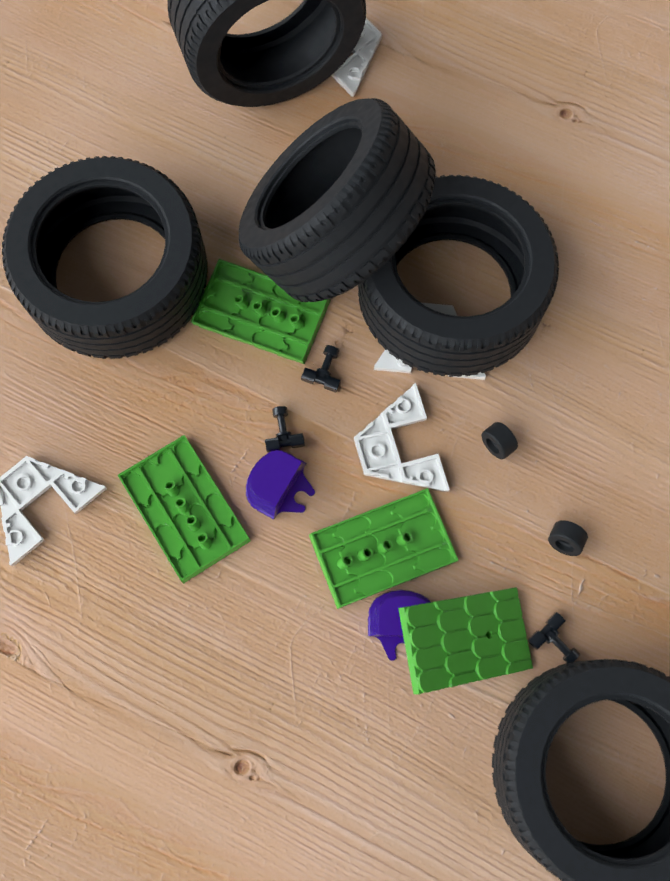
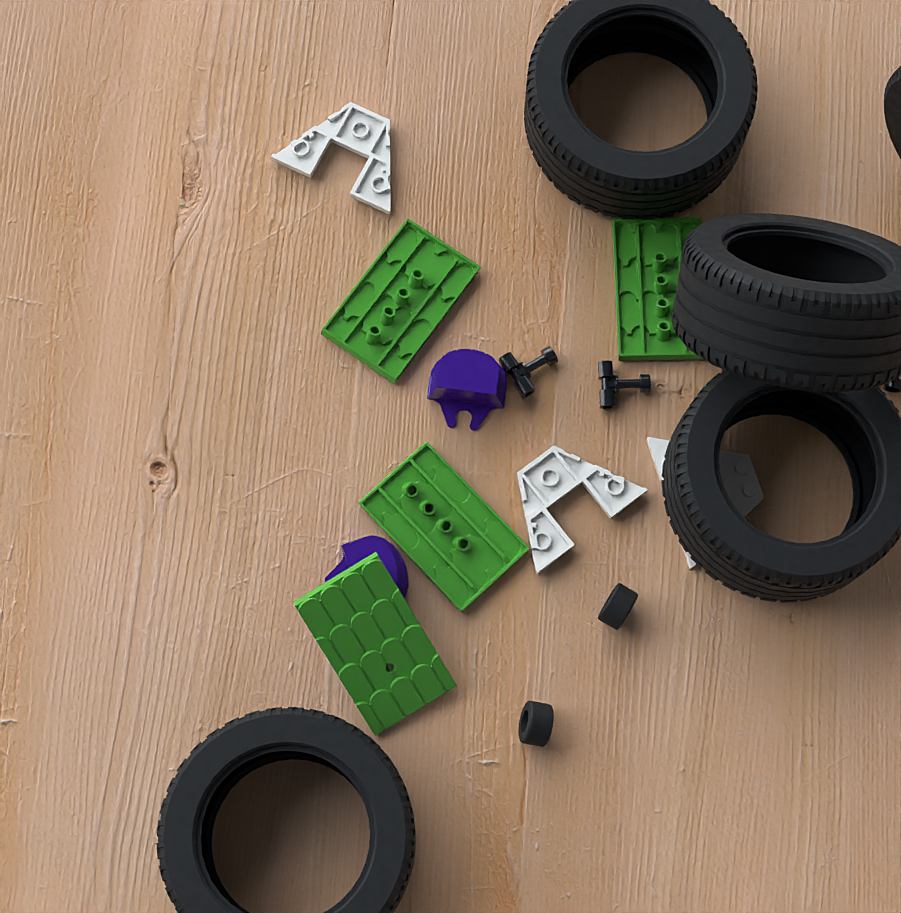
camera: 70 degrees right, 0 degrees up
(550, 634) = (420, 741): black bar -> none

